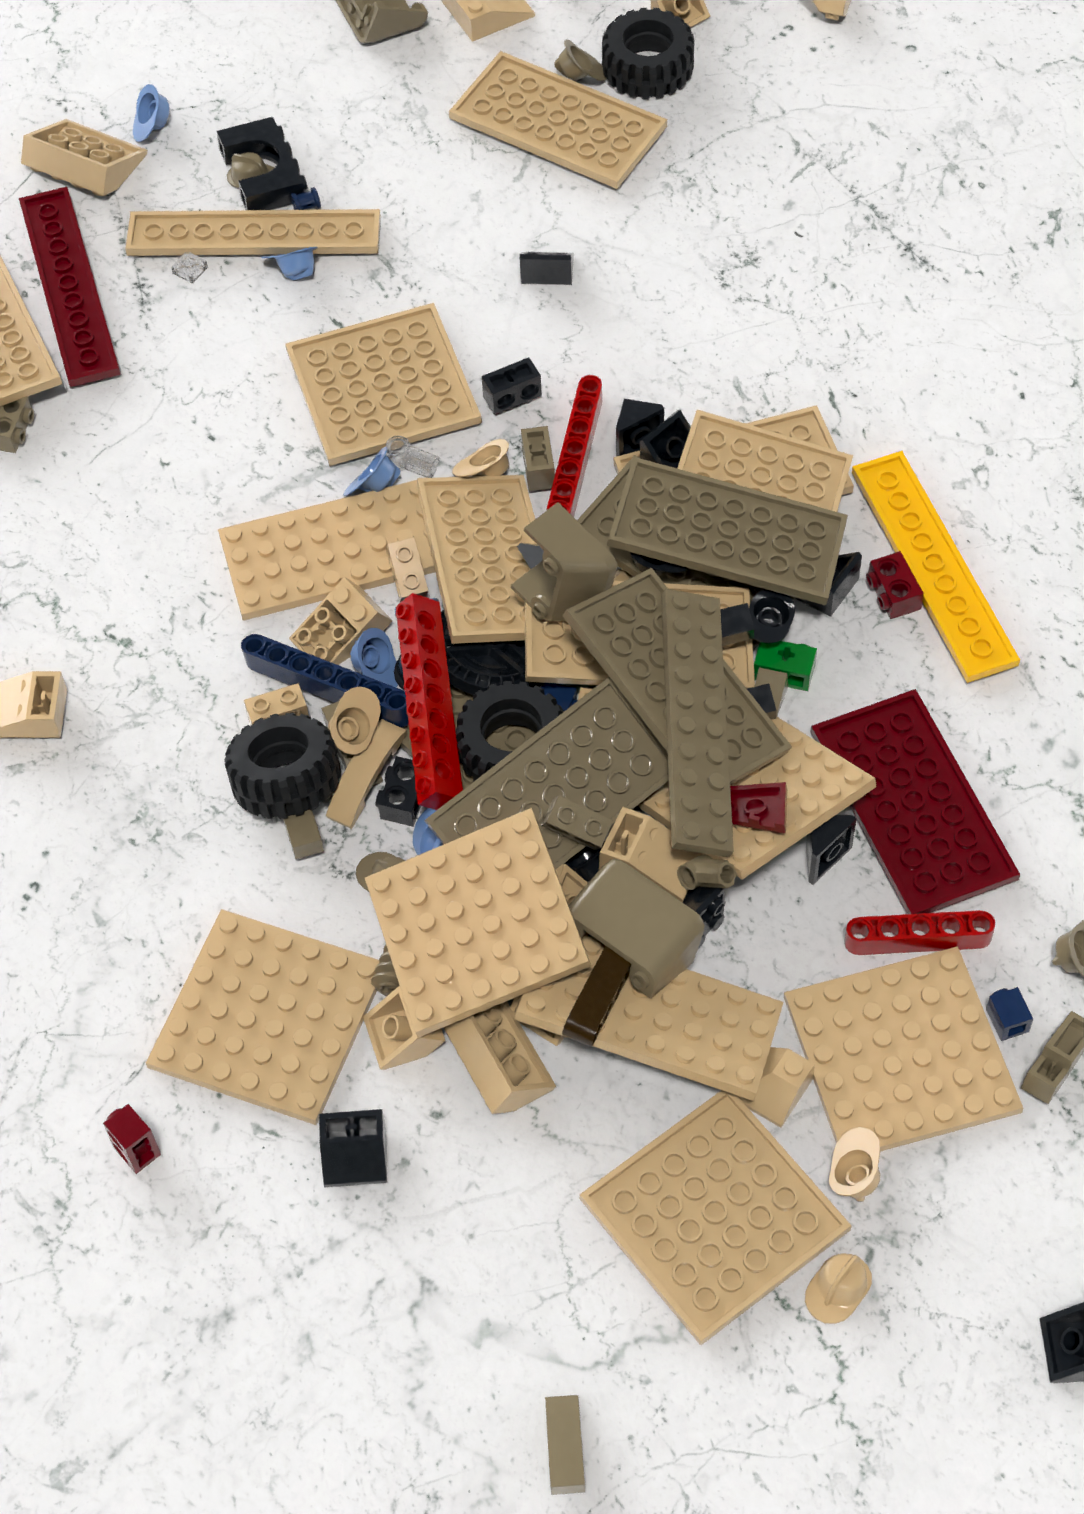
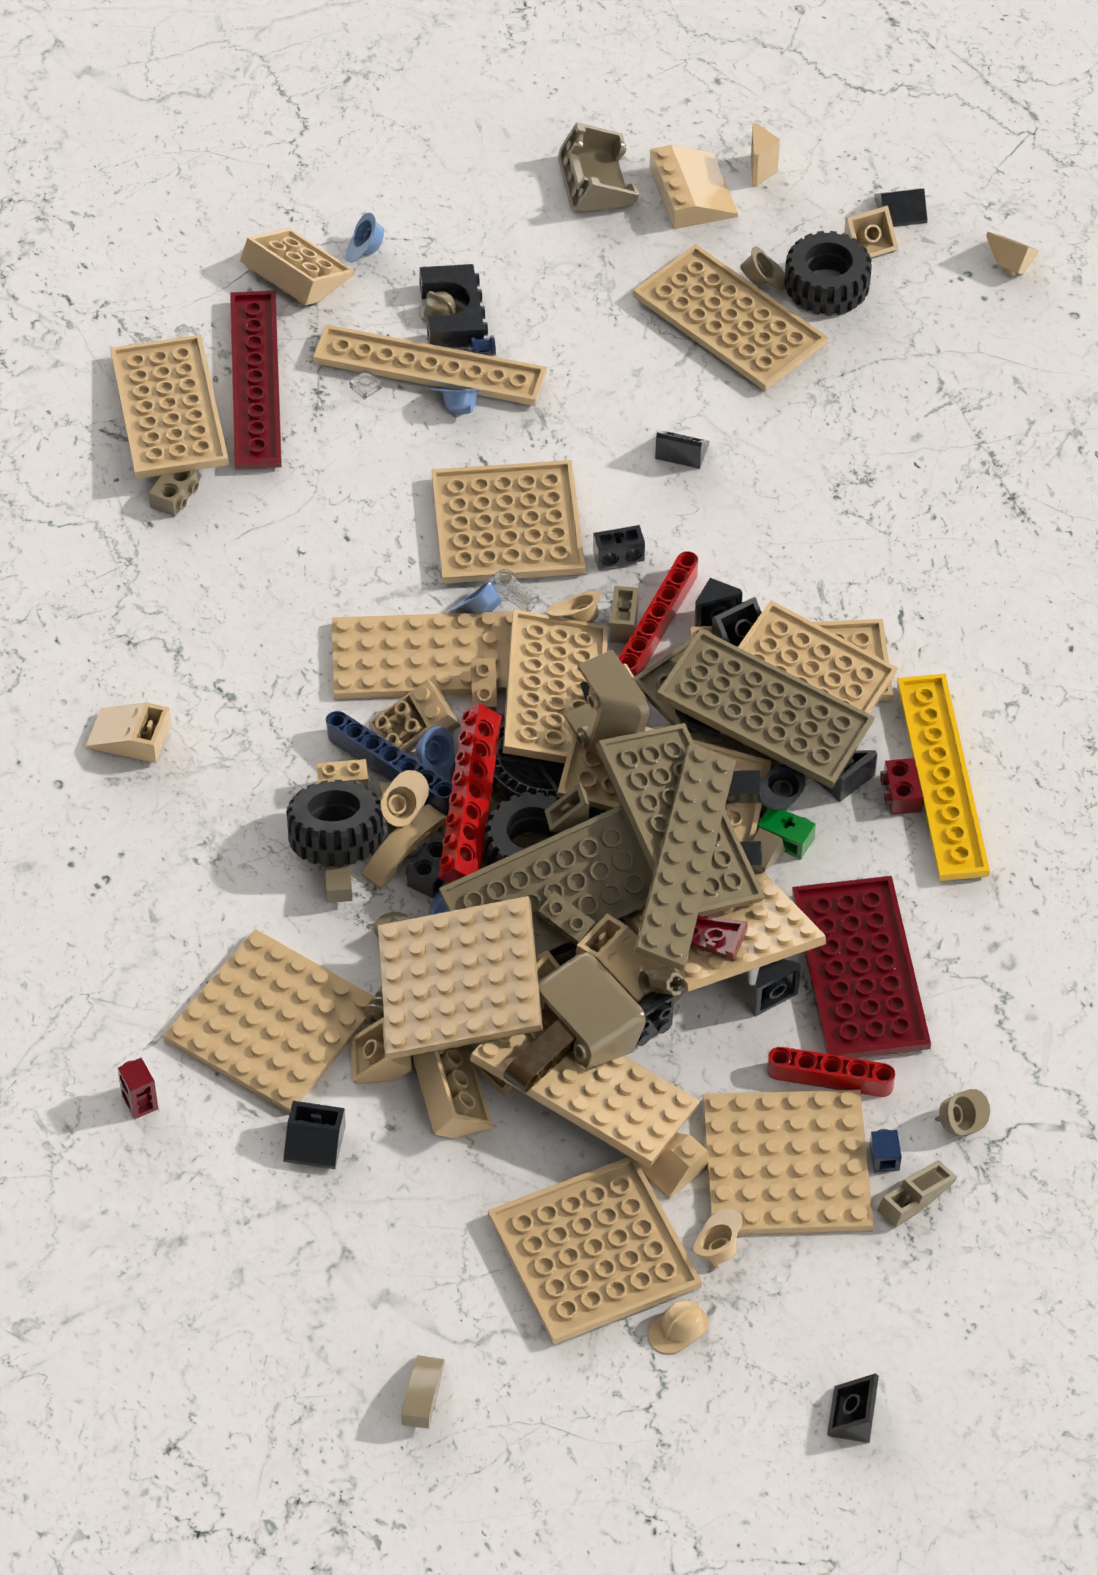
camera: 10 degrees right, 5 degrees down
(548, 696) = (568, 810): none -> dark tan slope

